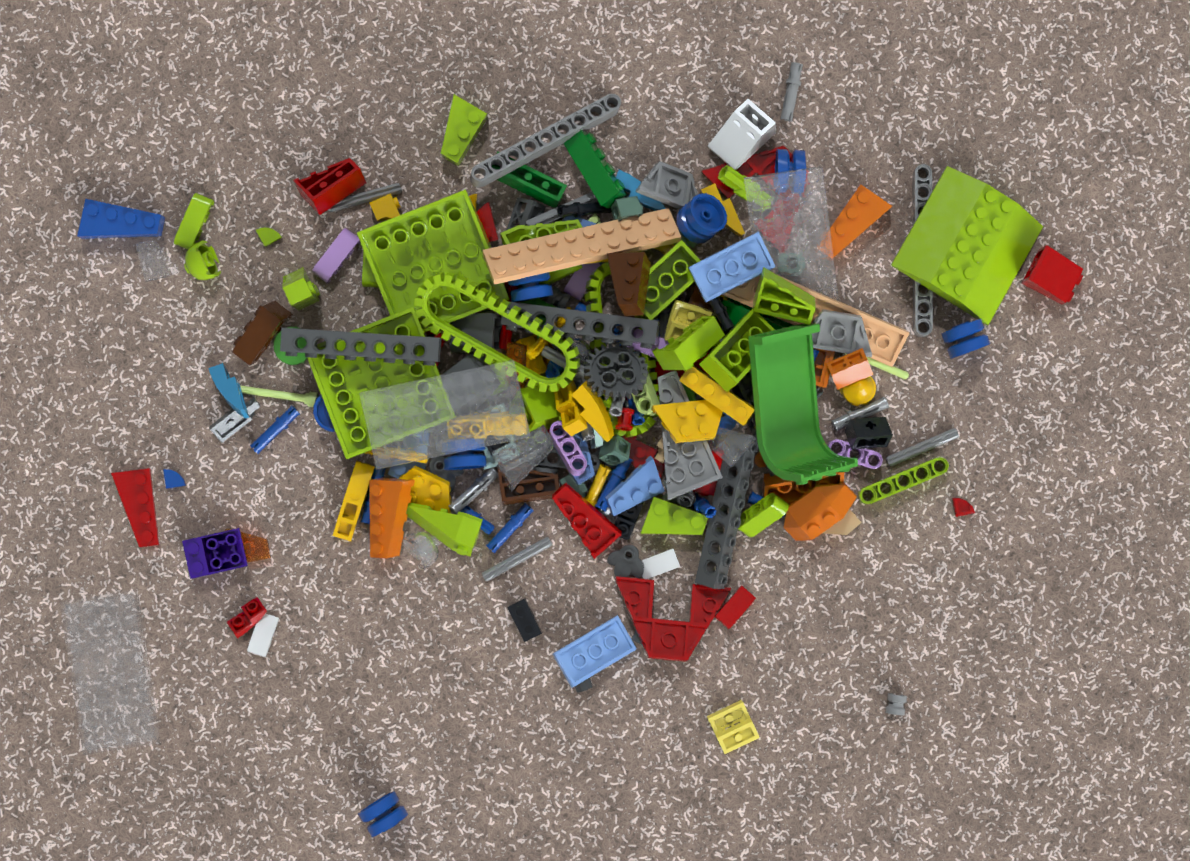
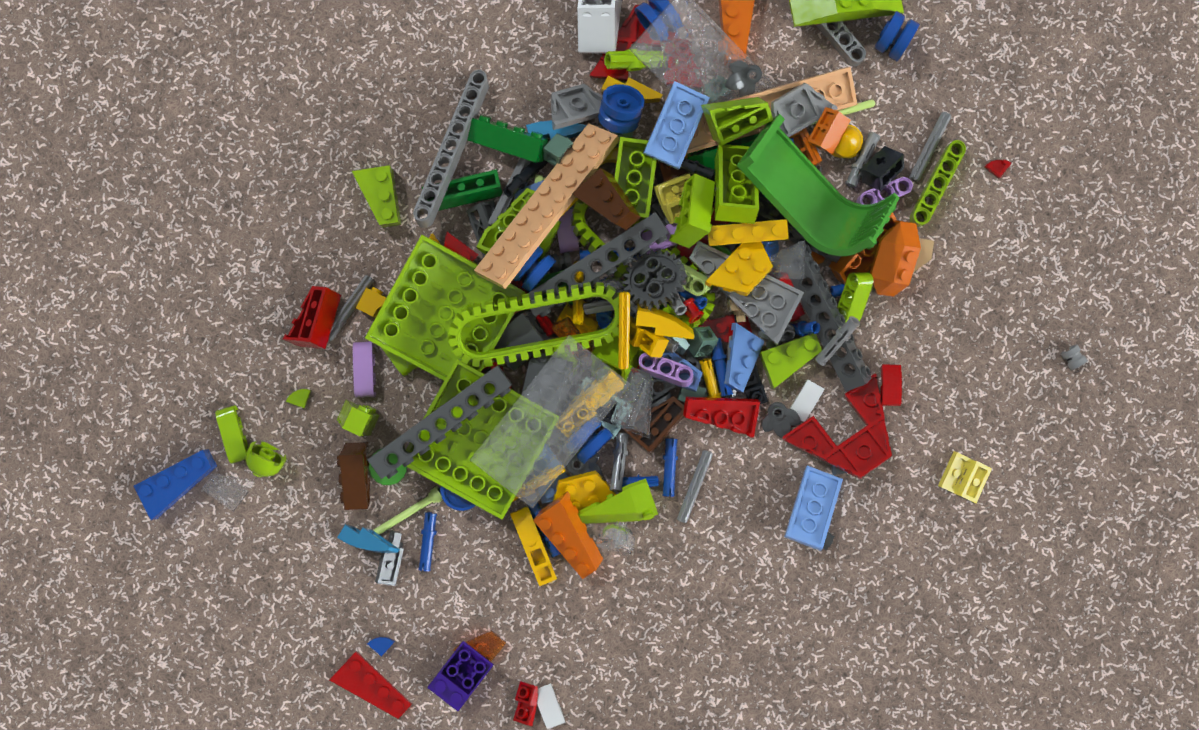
camera: 40 degrees left, 0 degrees up
(524, 620) = (740, 528): black brick -> none
(559, 391) = (624, 330): none -> yellow axle
(735, 533) = (842, 334): none -> light grey pin
(813, 272) = (740, 78): none -> dark grey plate

